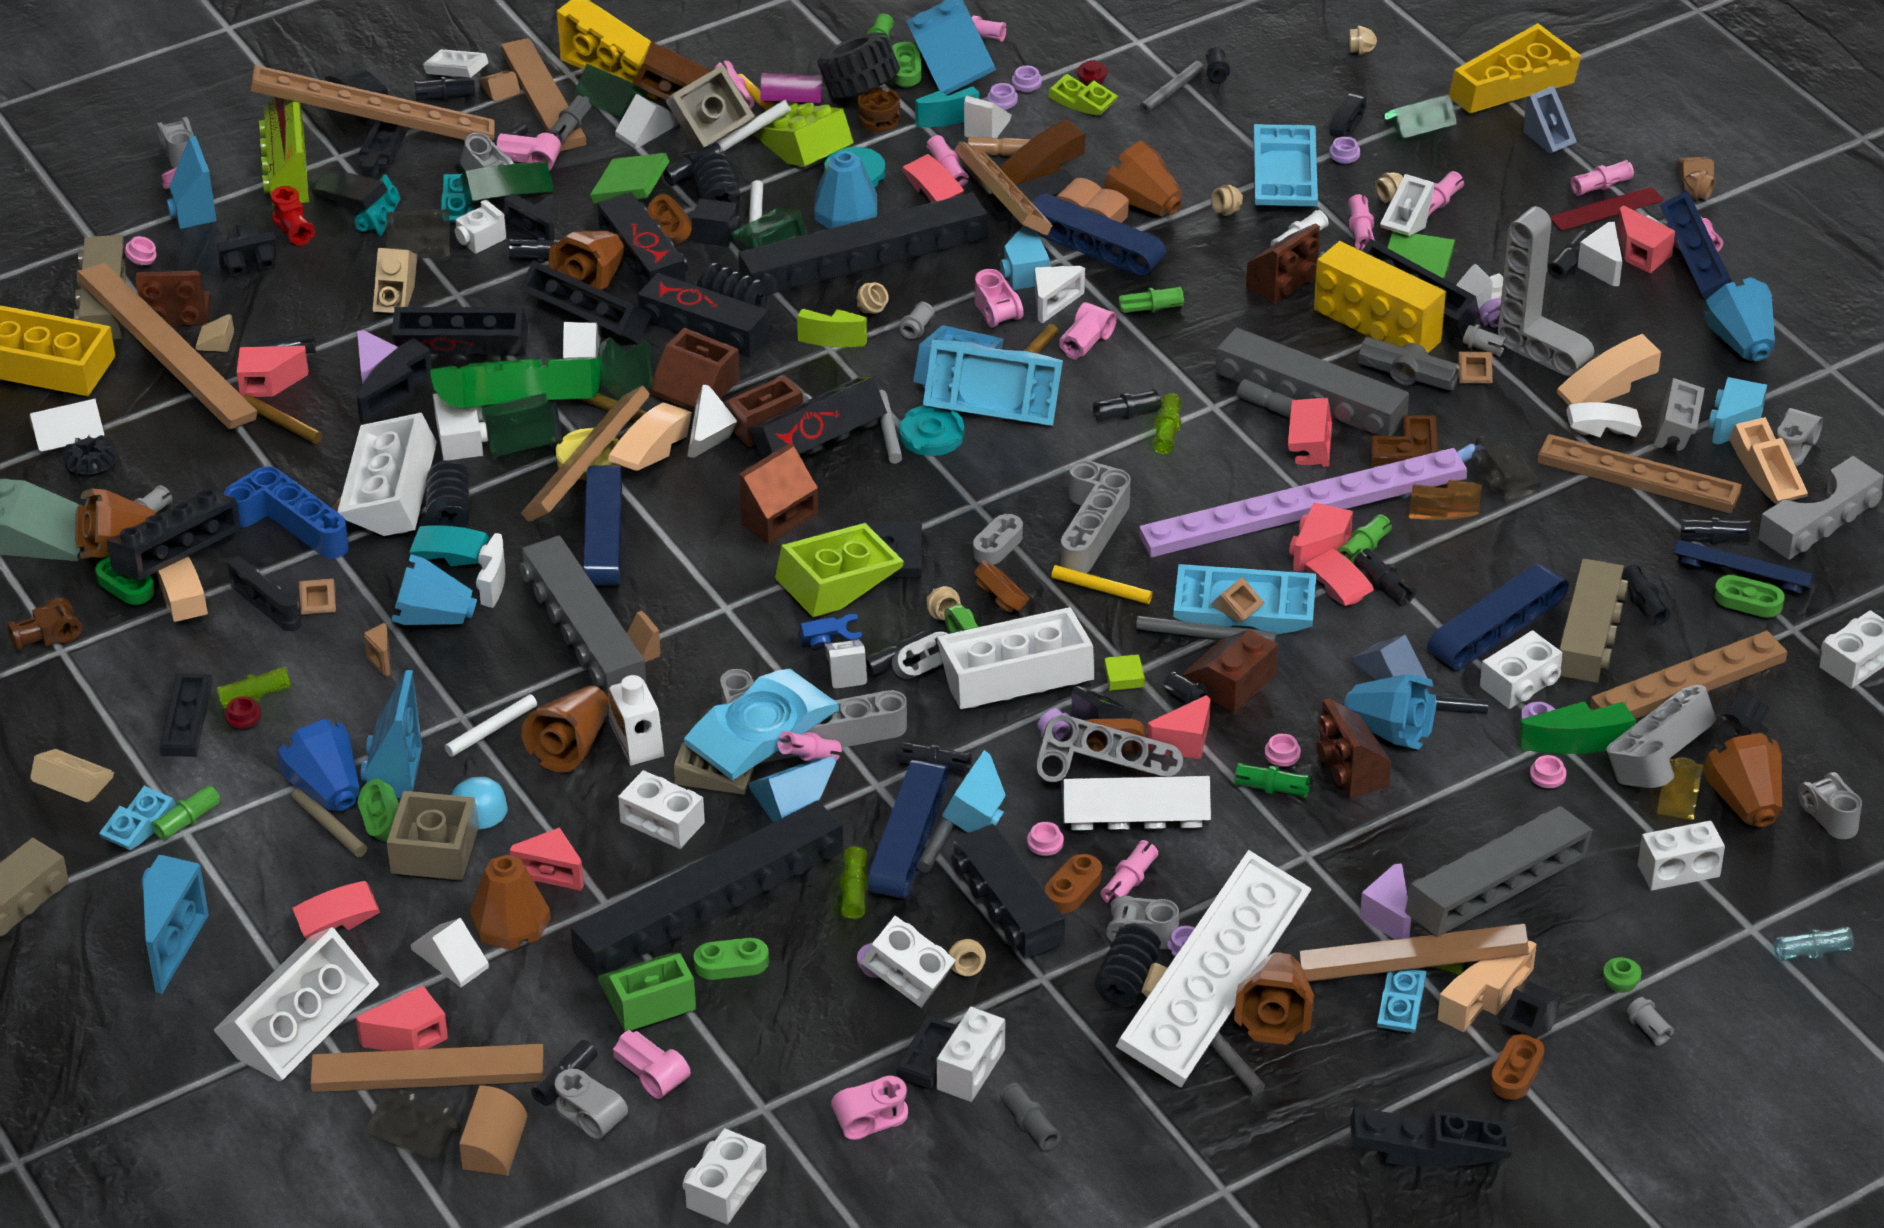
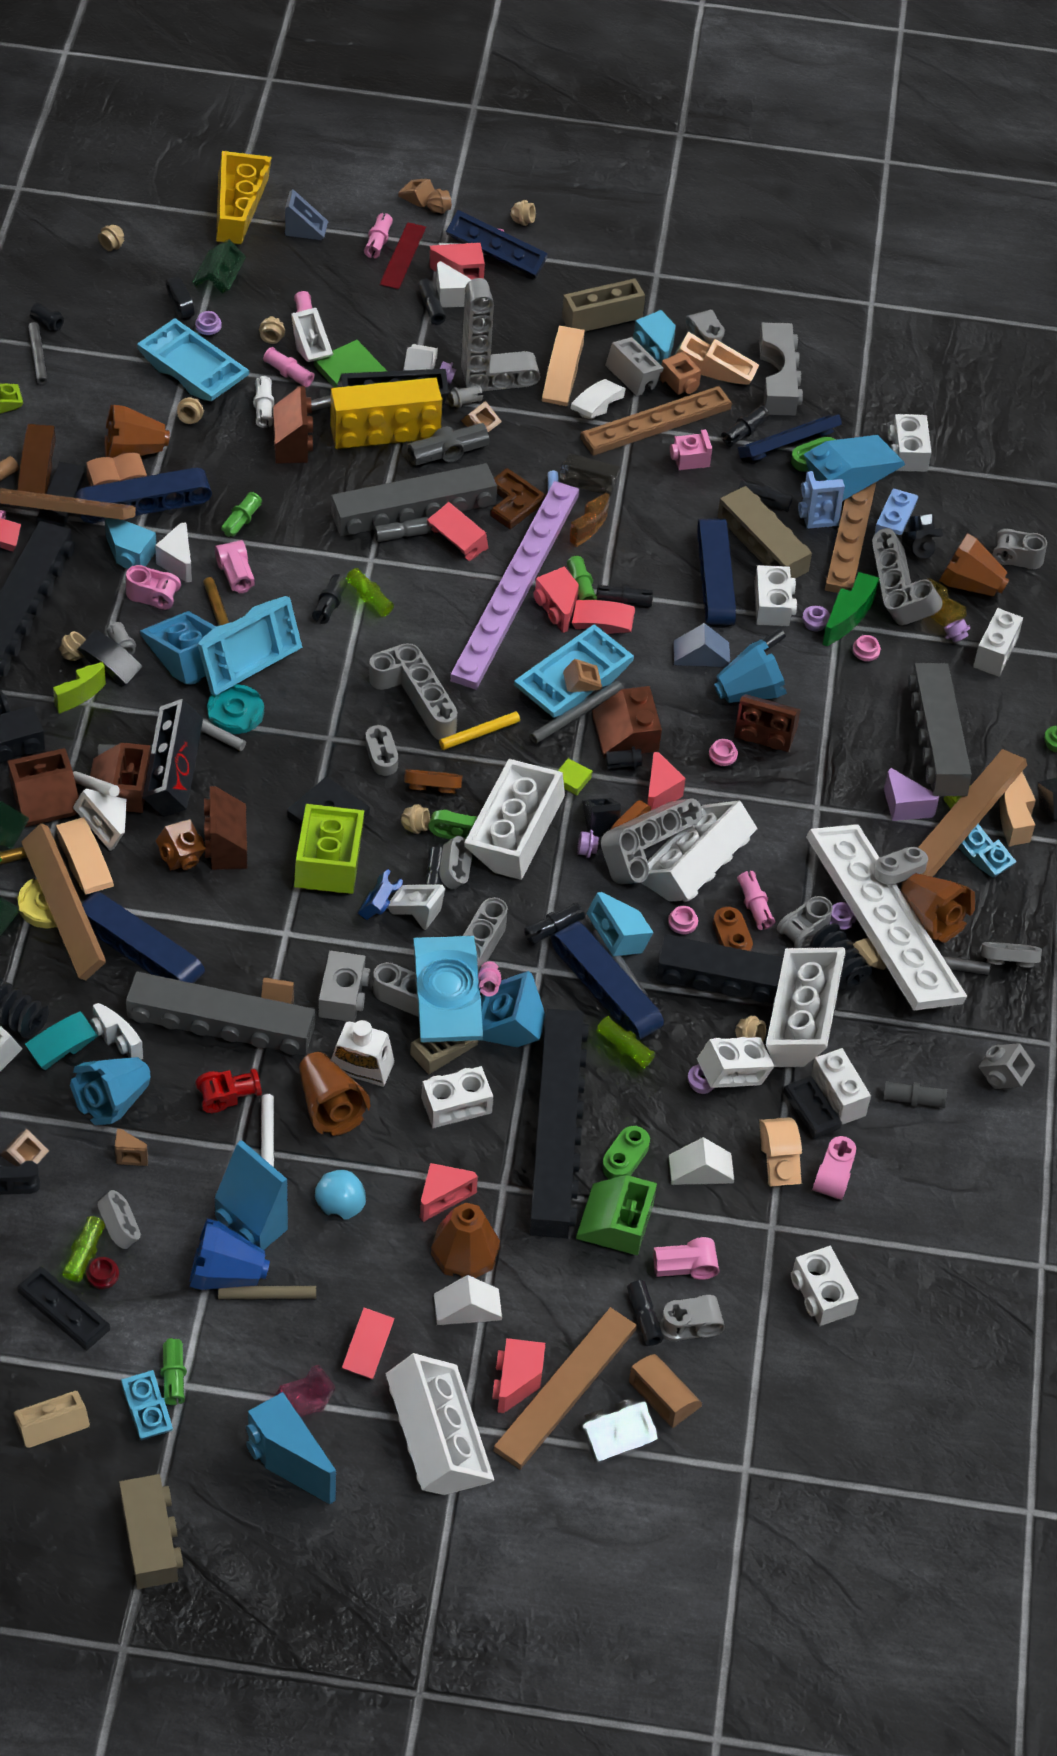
camera: 55 degrees left, 10 degrees up
(241, 903) = (309, 1393): none -> clear pink bracket
(298, 681) = (119, 1219): none -> light grey beam
(378, 808) = (295, 1254): bright green plate -> none
(432, 835) = (359, 1239): dark tan brick -> none
(509, 668) = (226, 1088): none -> red connector
(696, 667) = (339, 1001): none -> light grey brick
(724, 481) = (180, 845): none -> dark orange brick
(728, 392) = (96, 784): none -> white bar
(776, 1016) = (701, 1164): none -> white slope
(846, 1045) = (783, 1148): none -> light nougat brick
(884, 324) = (117, 660): none -> black slope
(1025, 963) = (804, 1005): none -> white slope
(1148, 1164) = (1006, 1066): none -> light grey brick
(1272, 780) = (745, 775): green pin -> none
(1281, 936) = (900, 865): none -> light grey plate
(1285, 1082) = (1023, 955): none -> light grey plate
(1628, 514) = (692, 451): none -> bright pink brick
(1658, 819) = (957, 630): none -> lavender plate
(1677, 625) = (821, 502): none -> light blue bracket
(1710, 457) = (685, 377): none -> nougat brick
(1717, 349) = (604, 305): none -> dark tan brick
(1743, 318) = (589, 271): dark azure cone -> none
(1750, 678) = (897, 511): none -> light blue bracket
(1756, 617) = (854, 460): none -> dark azure slope
(1767, 240) = (523, 212): none -> tan plate

